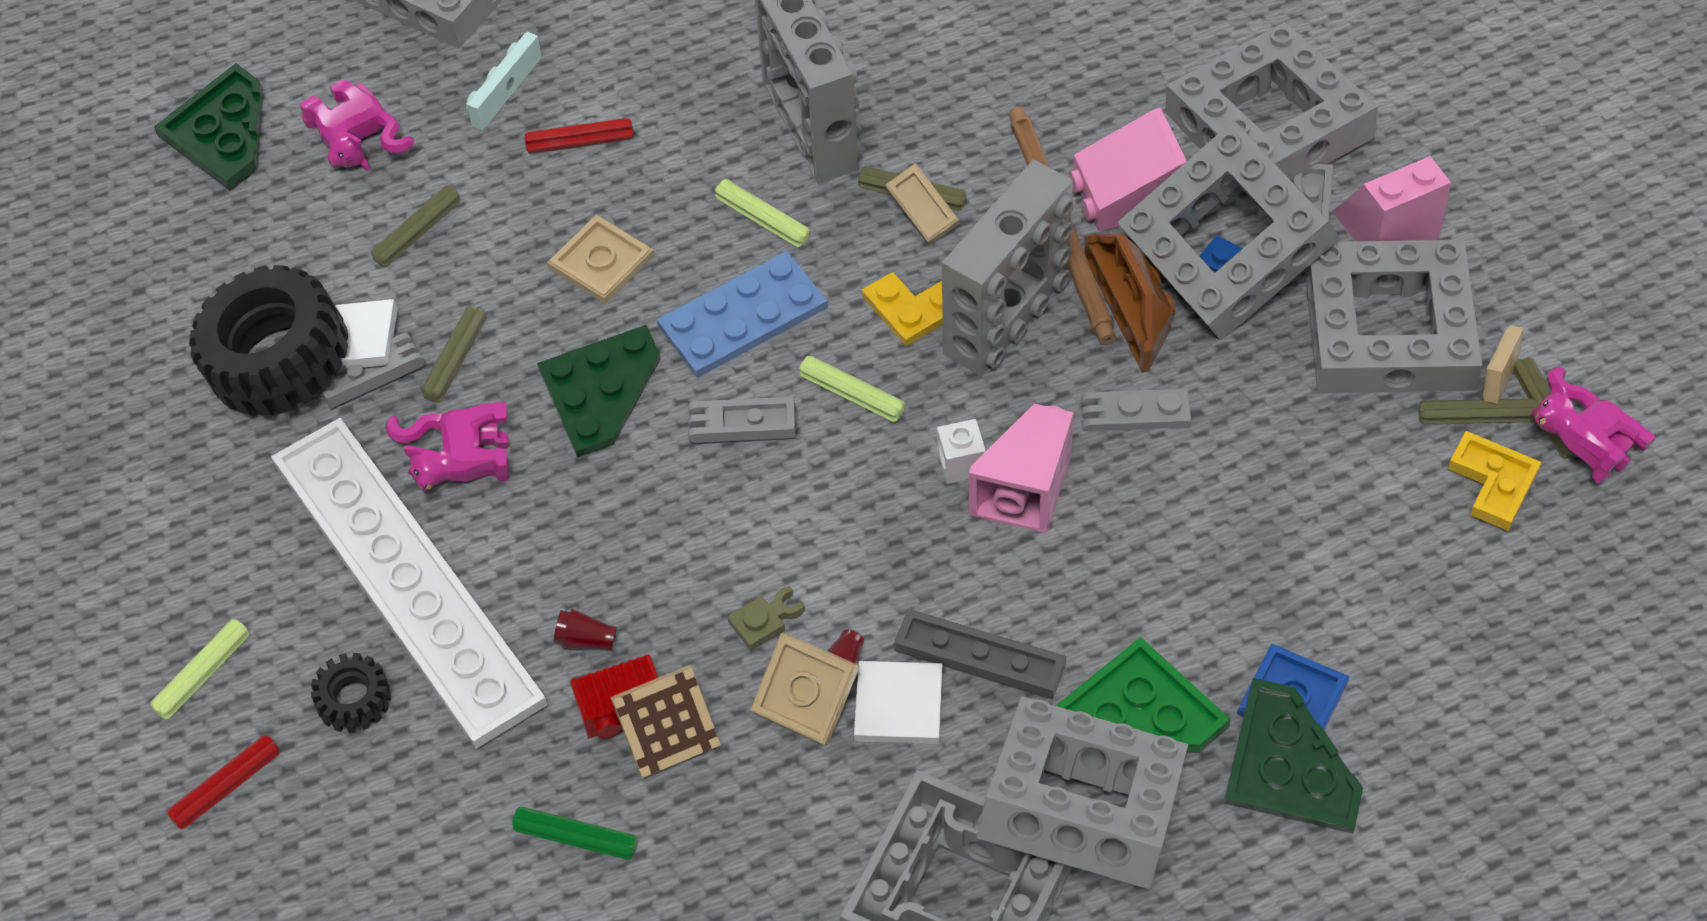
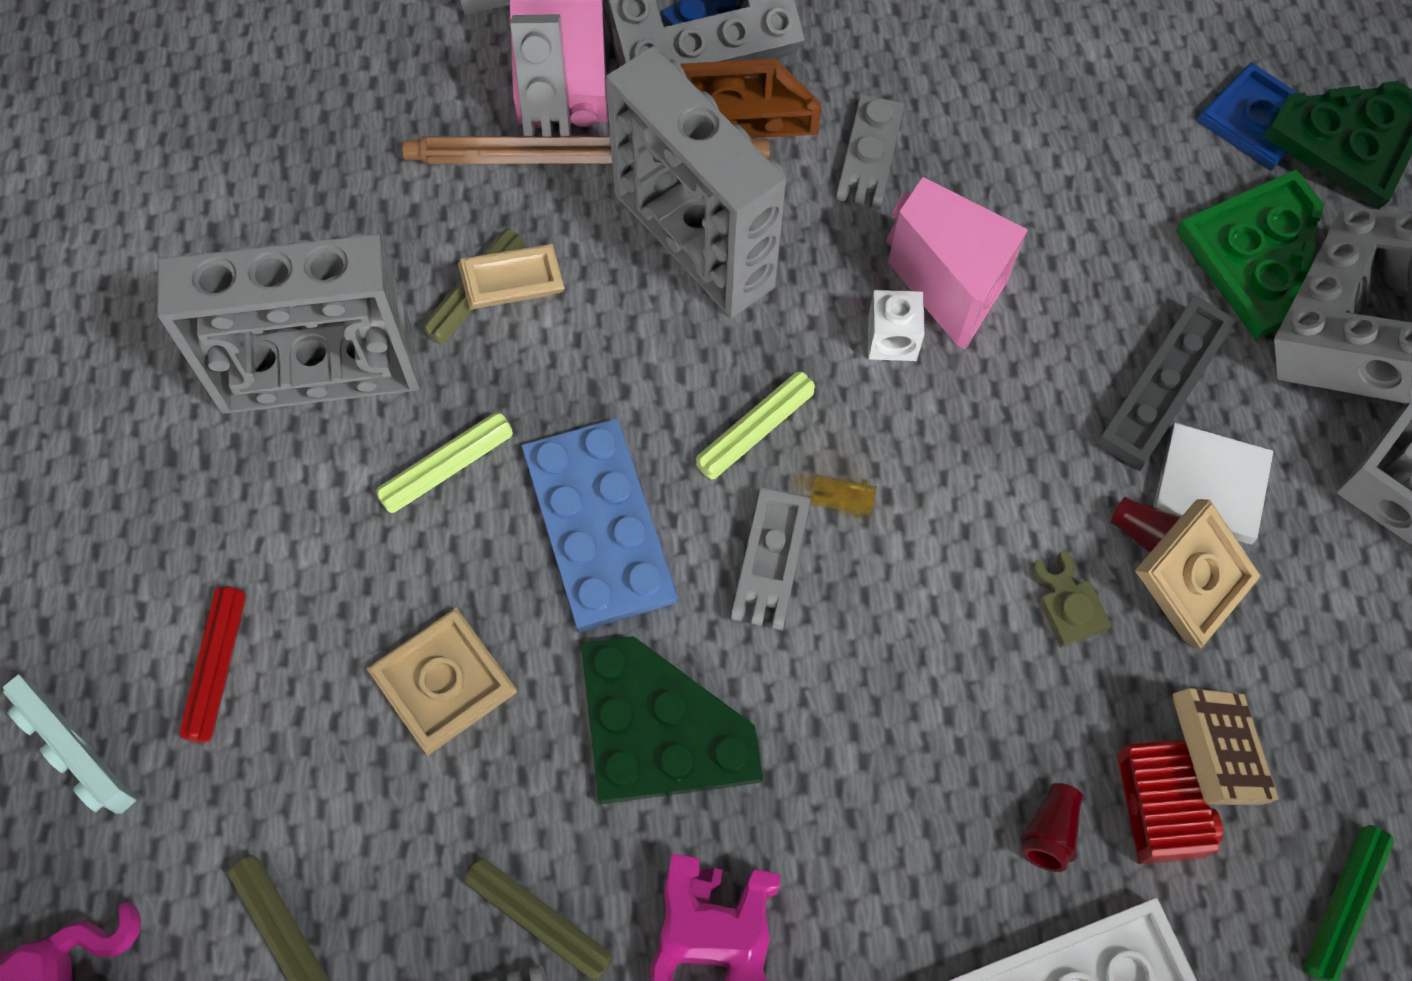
camera: 80 degrees left, 10 degrees up
(807, 454) = (845, 495): none -> clear yellow pin
(902, 312) = (664, 336): yellow plate -> none
(1087, 151) = (541, 73): none -> light grey hinge

